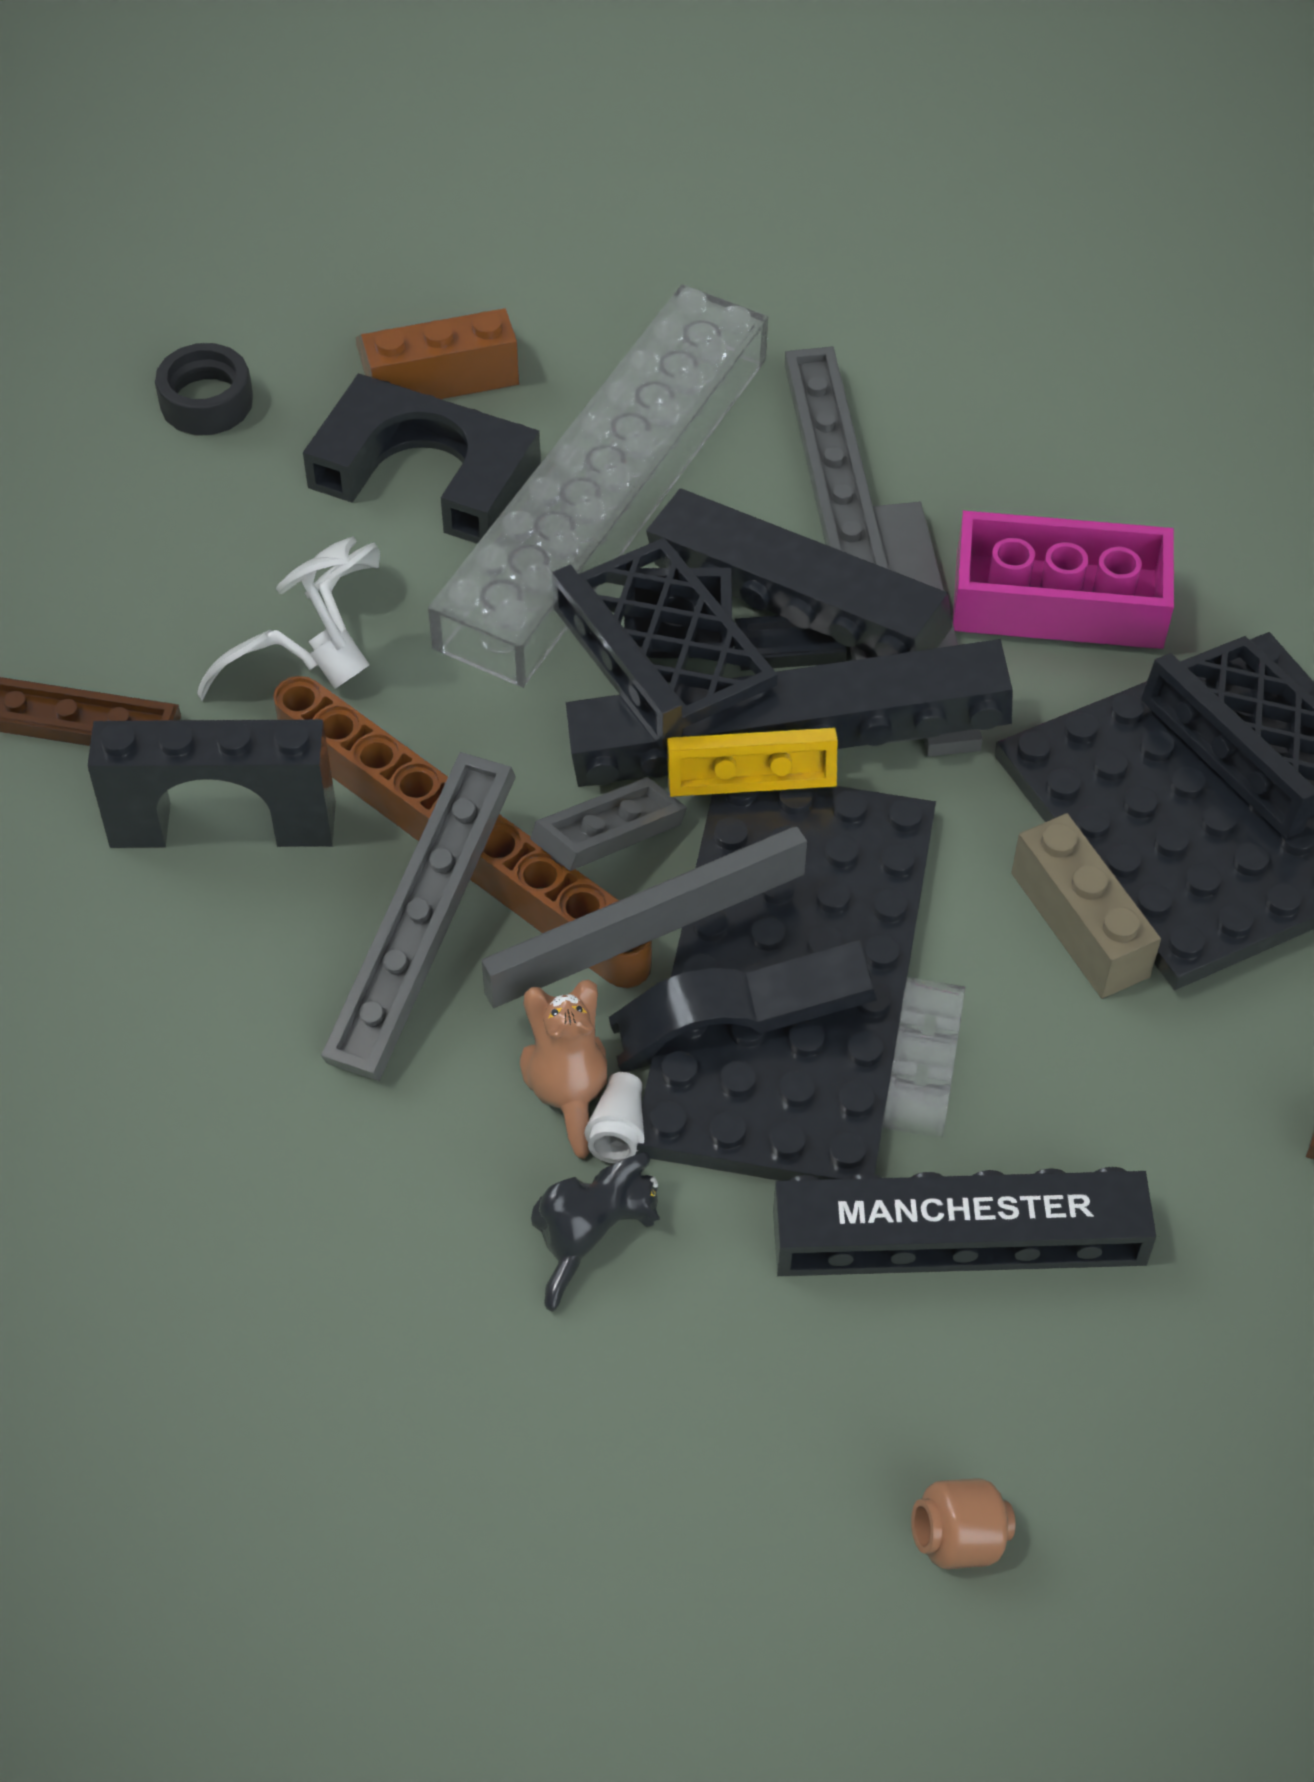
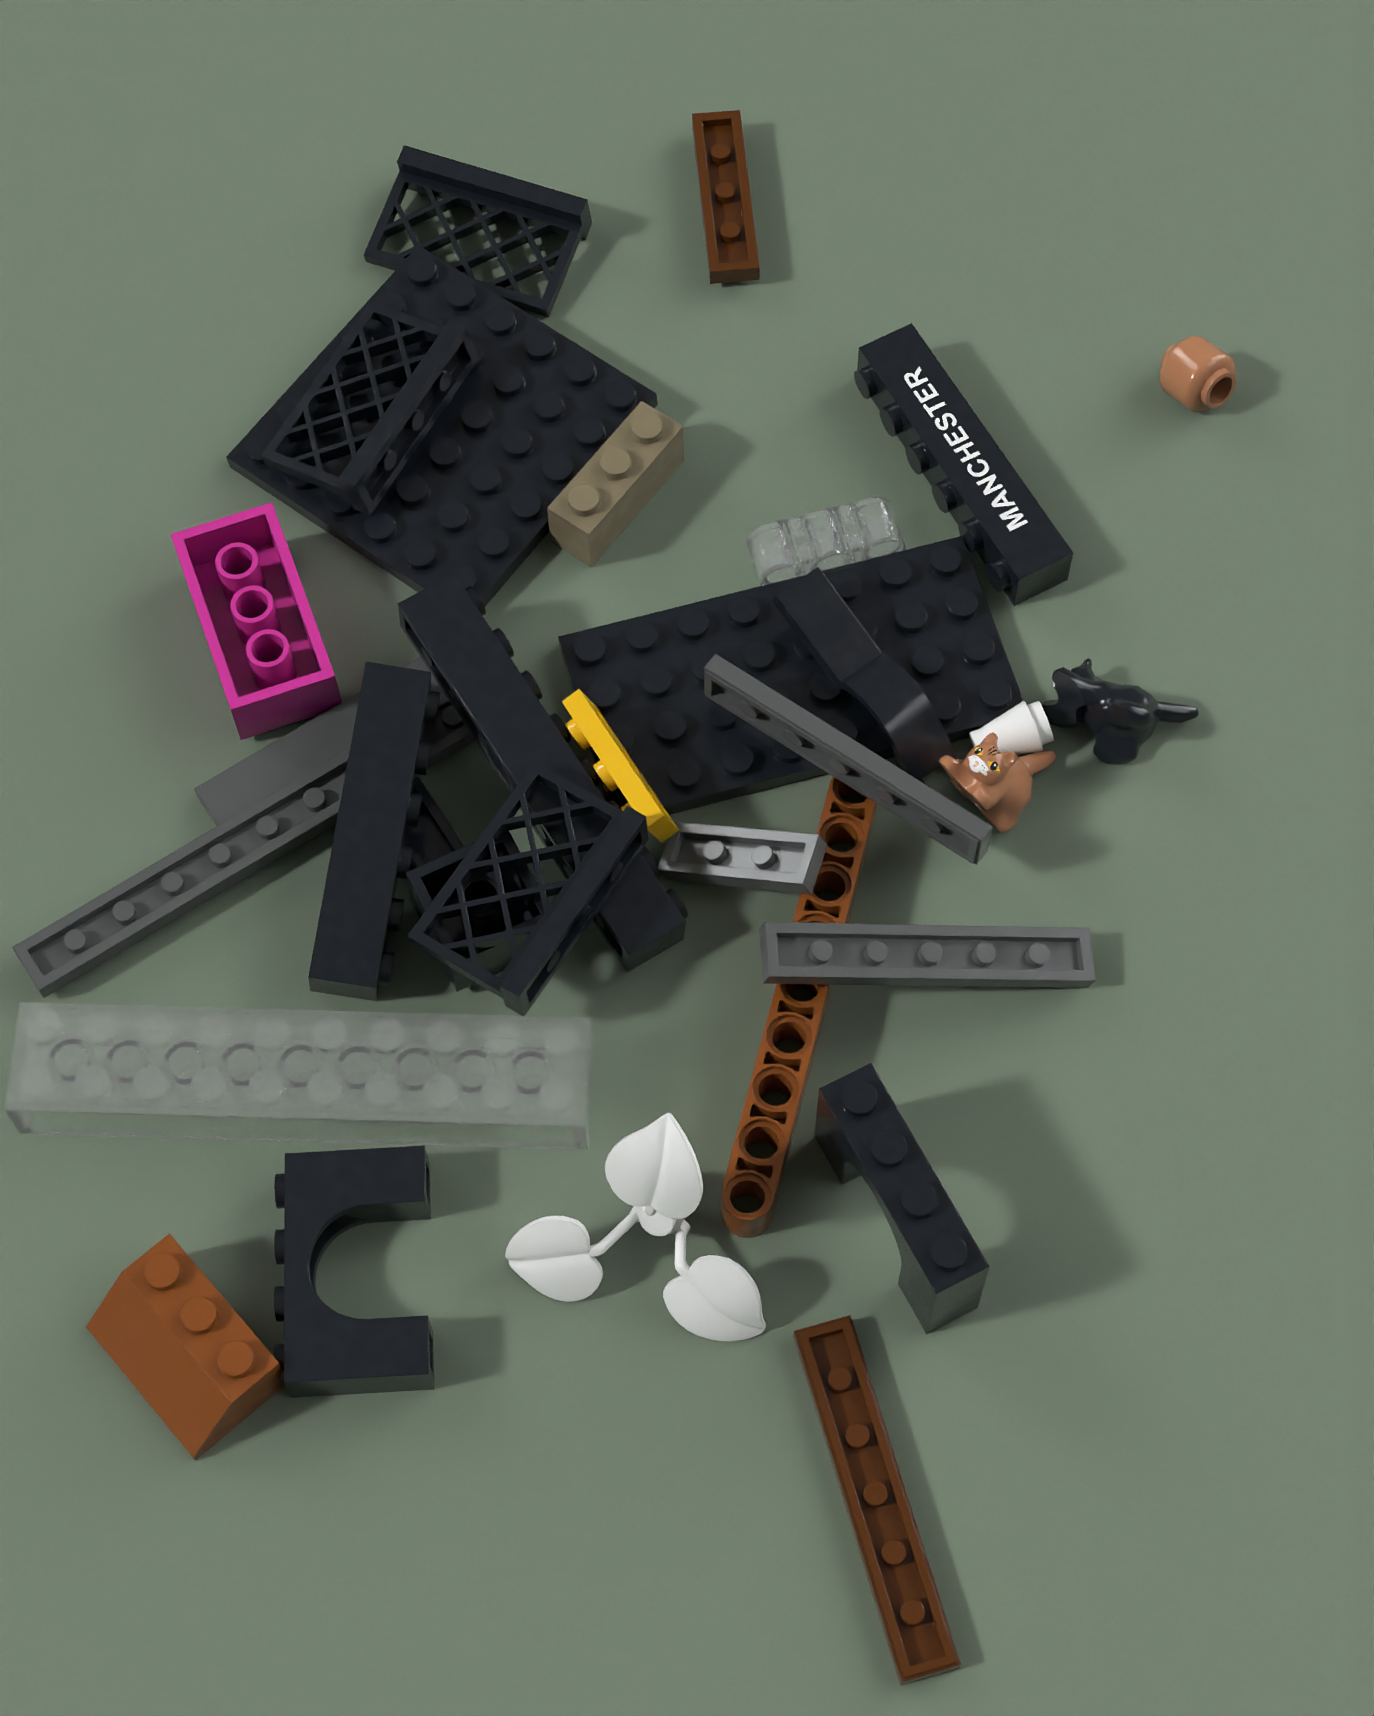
camera: 115 degrees left, 10 degrees up
(199, 363) = (321, 1537): black tyre -> none

